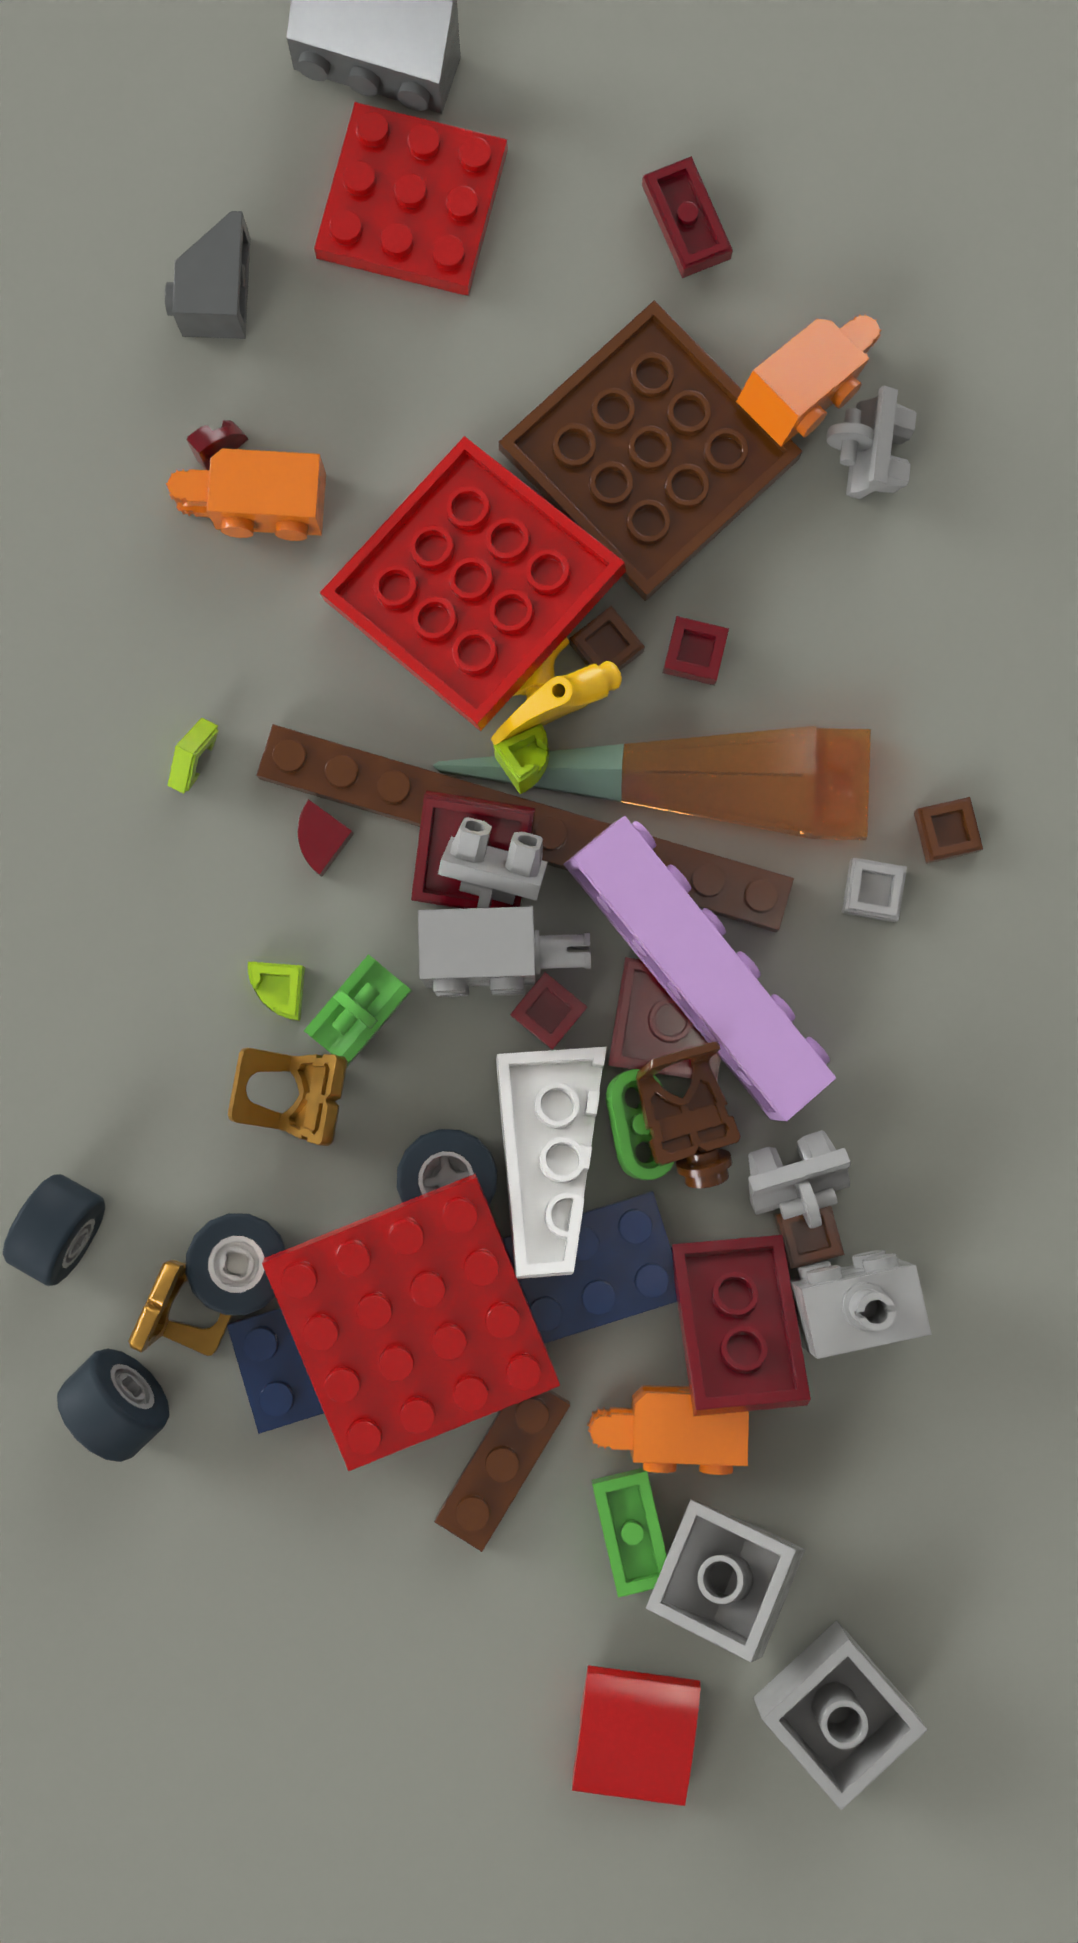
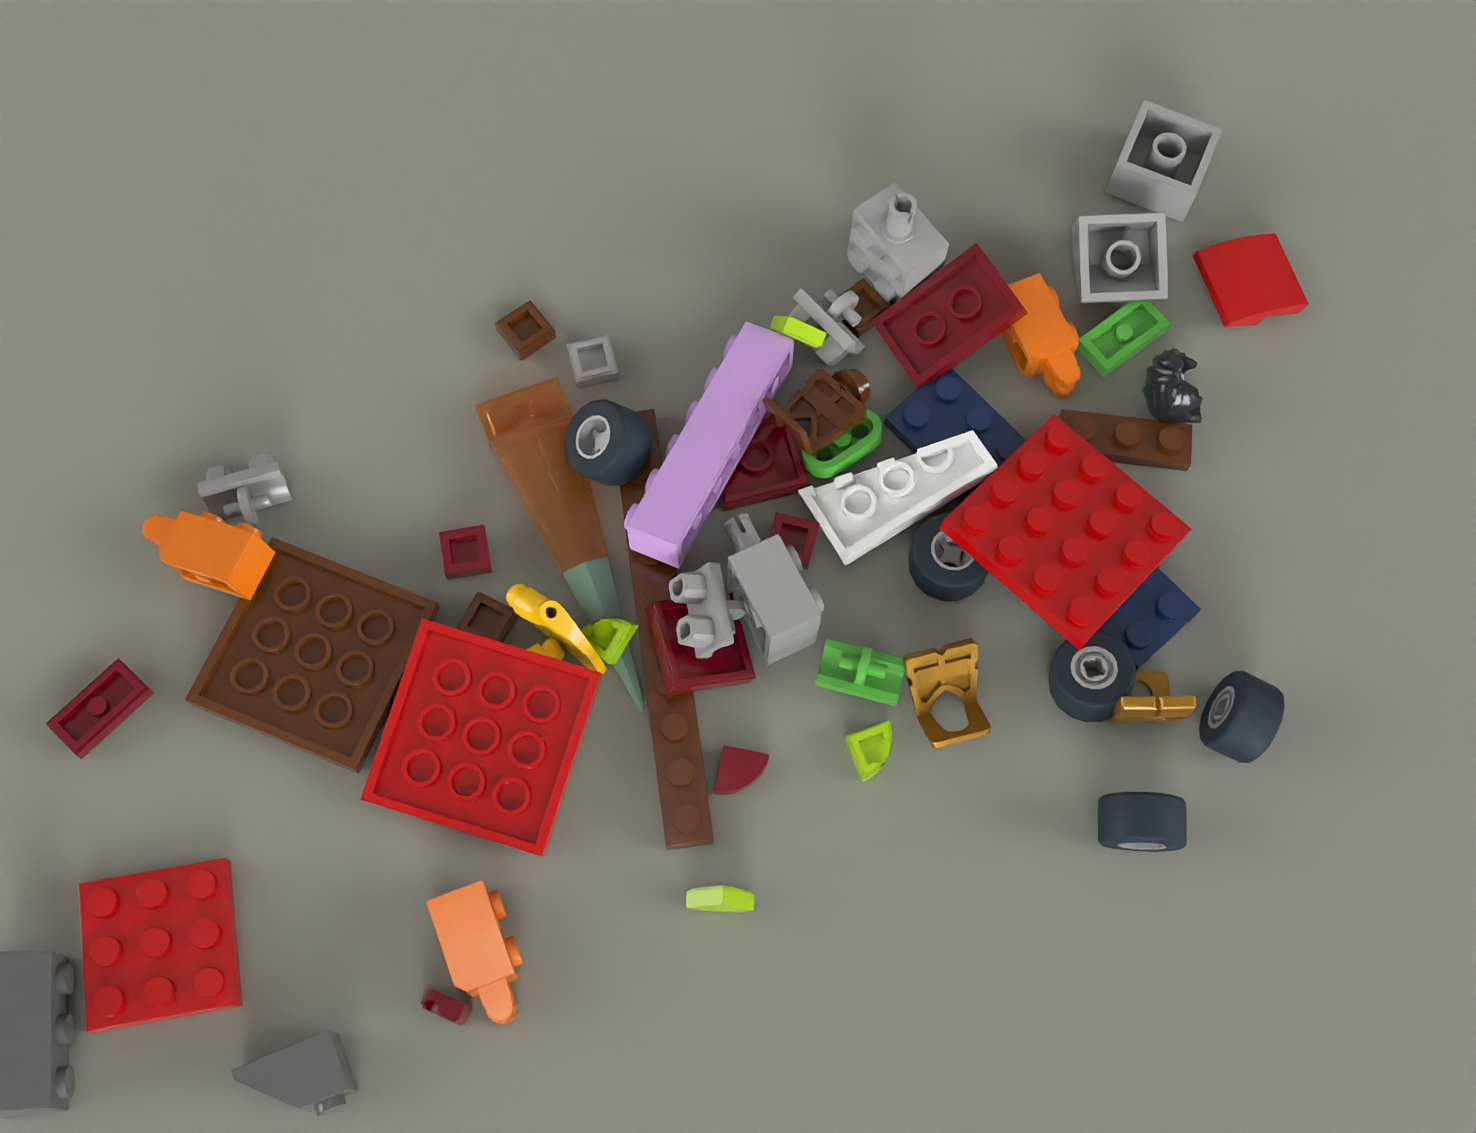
camera: 115 degrees left, 15 degrees down
(530, 1547) = (1168, 393): none -> black hair
(750, 850) = (607, 442): none -> black wheel
(798, 1132) = (798, 330): none -> lime tile

